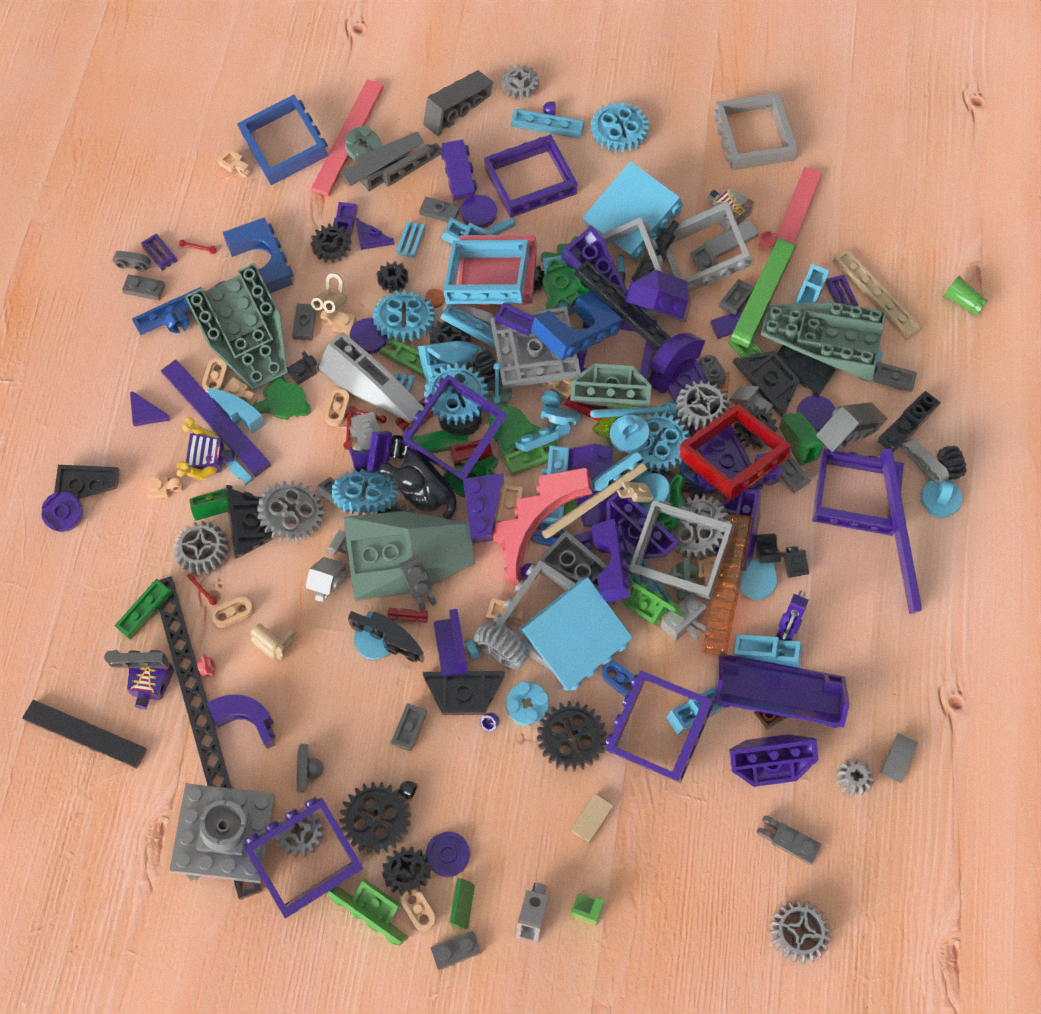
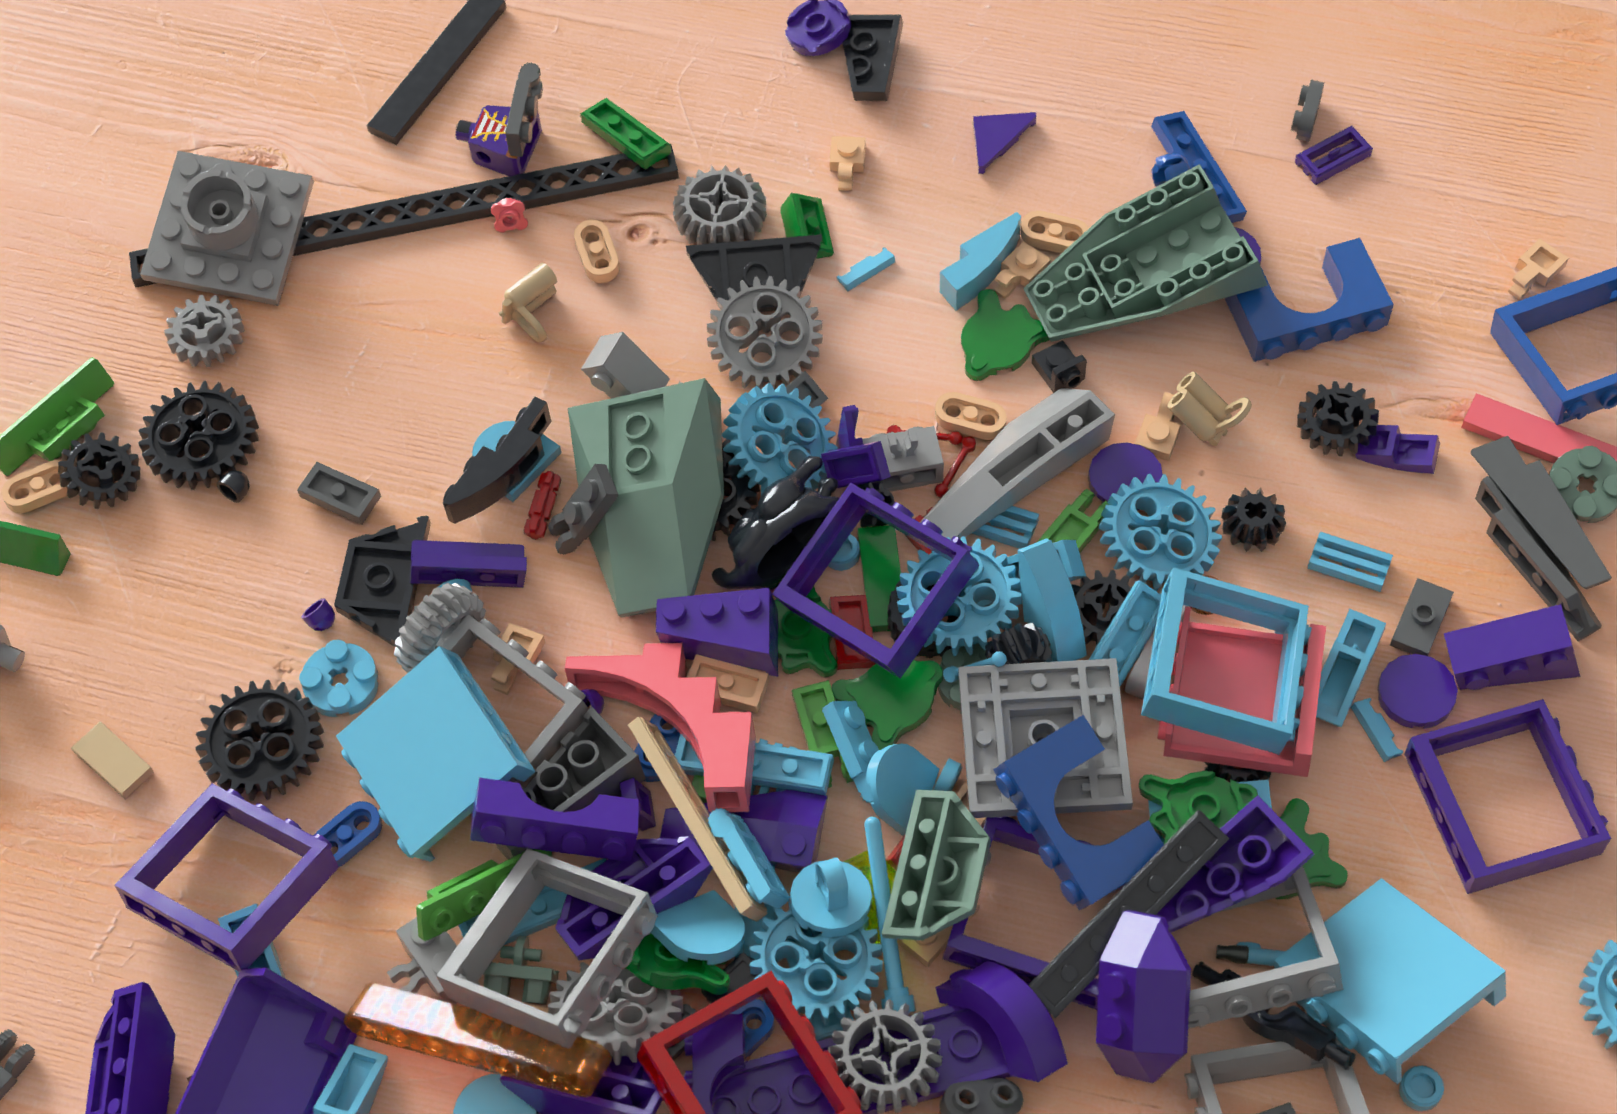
camera: 100 degrees right, 5 degrees down
(143, 287) = (1256, 132): dark grey plate -> none
(204, 453) = (896, 213): torso -> none
(212, 249) = (1337, 235): red hinge -> none
(212, 600) = (627, 228): red hinge -> none
(216, 418) = (926, 261): dark purple tile -> none
(240, 707) = (417, 272): dark purple arch -> none
(304, 322) = (1159, 372): dark grey plate -> none
(306, 768) = (305, 342): dark grey tile -> none
(323, 886) = (183, 366): dark purple window -> none
(371, 237) = (1359, 491): dark purple tile -> none
(448, 854) = (116, 538): dark purple tile -> none
(515, 319) = (1107, 698): dark purple tile -> none
(637, 491) = (699, 894): tan plate -> none

